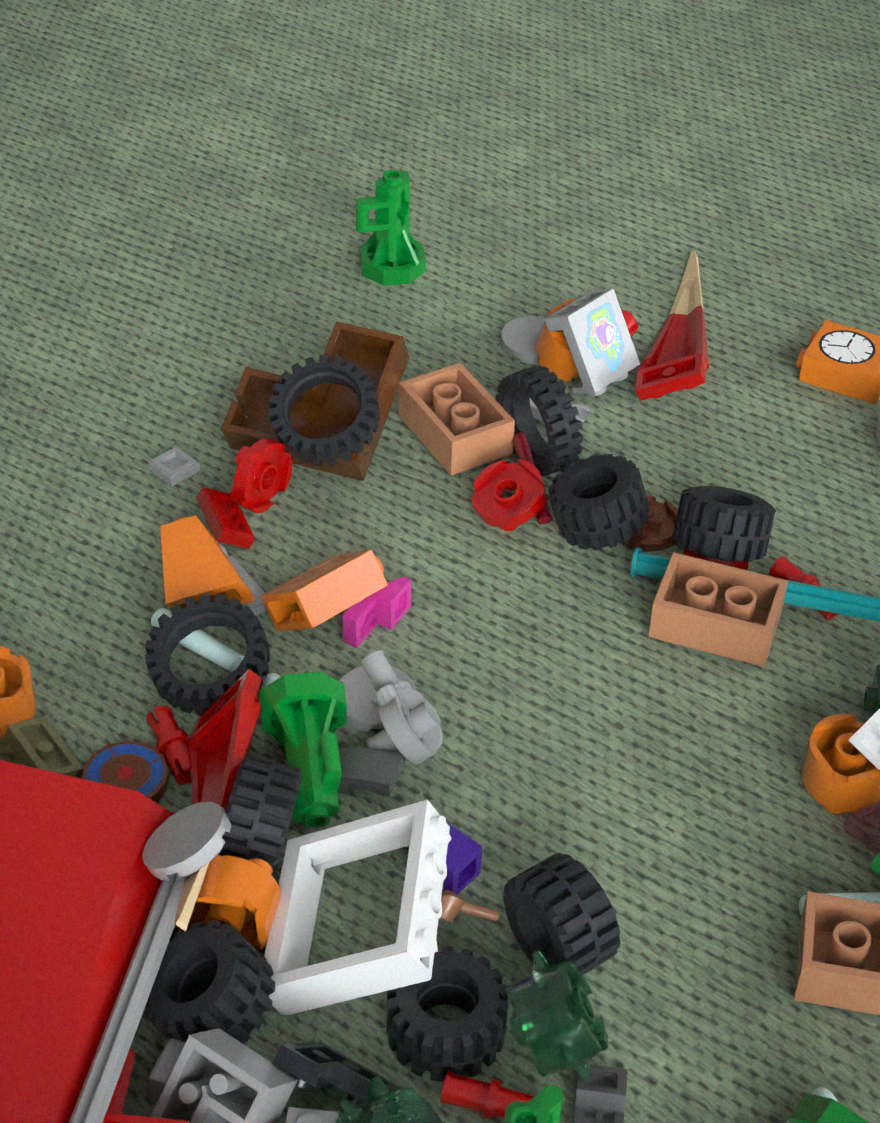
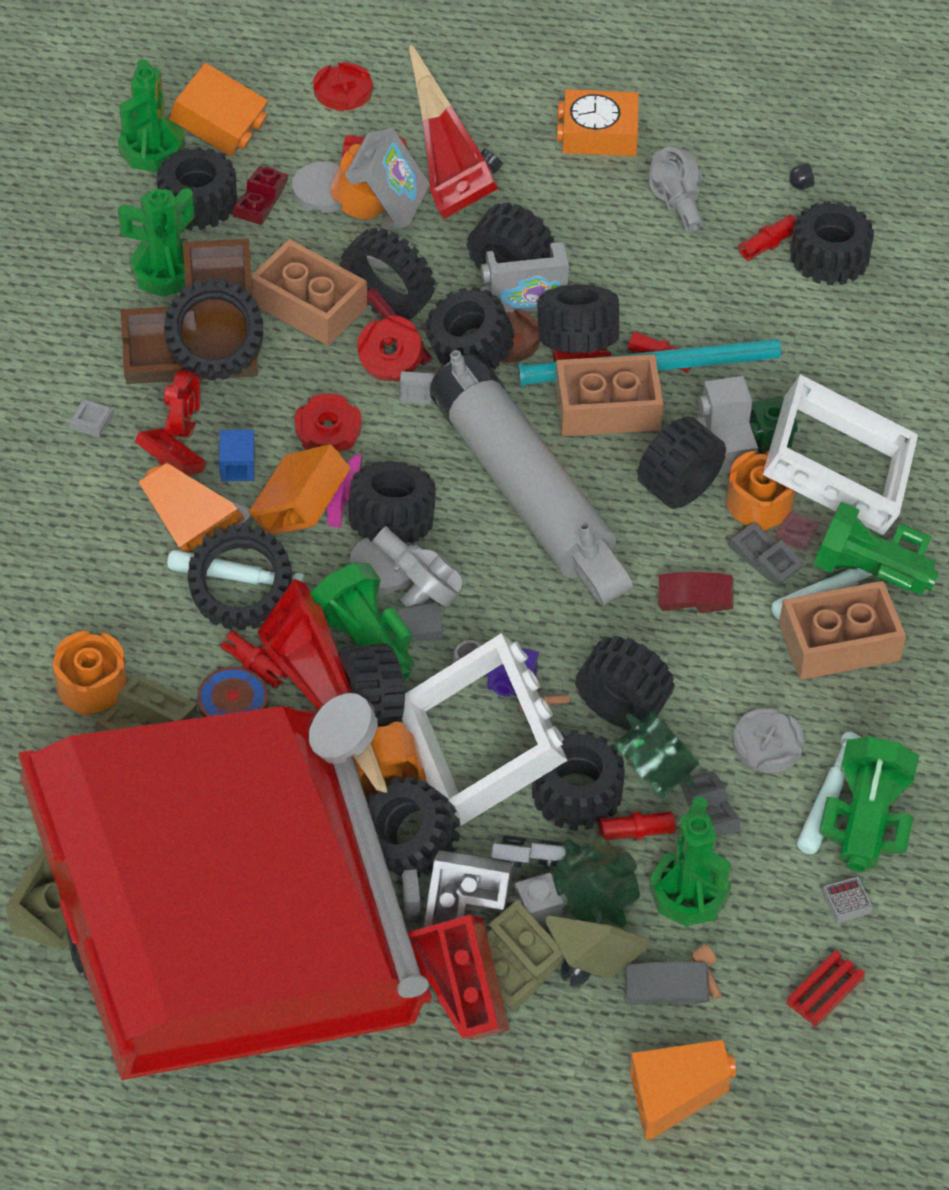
camera: 25 degrees left, 10 degrees up
(288, 541) = (237, 455): none -> blue brick
(334, 300) = (161, 243): none -> green piece
(404, 559) = (332, 407): none -> red plate
(406, 301) = (209, 178): none -> black tyre
(418, 633) = (392, 497): none -> black tyre
(468, 246) = (219, 110): none -> orange brick
(470, 328) = (261, 195): none -> dark red slope
(515, 538) = (415, 387): none -> light grey tile
(582, 661) = (529, 475): none -> light grey piece
(606, 266) = (343, 86): none -> red tile
(675, 466) = (522, 282): none -> light grey panel
(687, 434) = (510, 234): none -> black tyre
(716, 365) = (493, 161): none -> black hinge
(716, 1059) = (768, 740): none -> light grey tile
(718, 849) = (696, 589): none -> dark red slope
(762, 700) = (681, 462): none -> black tyre
(823, 843) = (769, 558): none -> dark grey slope
(841, 672) = (726, 413): none -> light grey brick

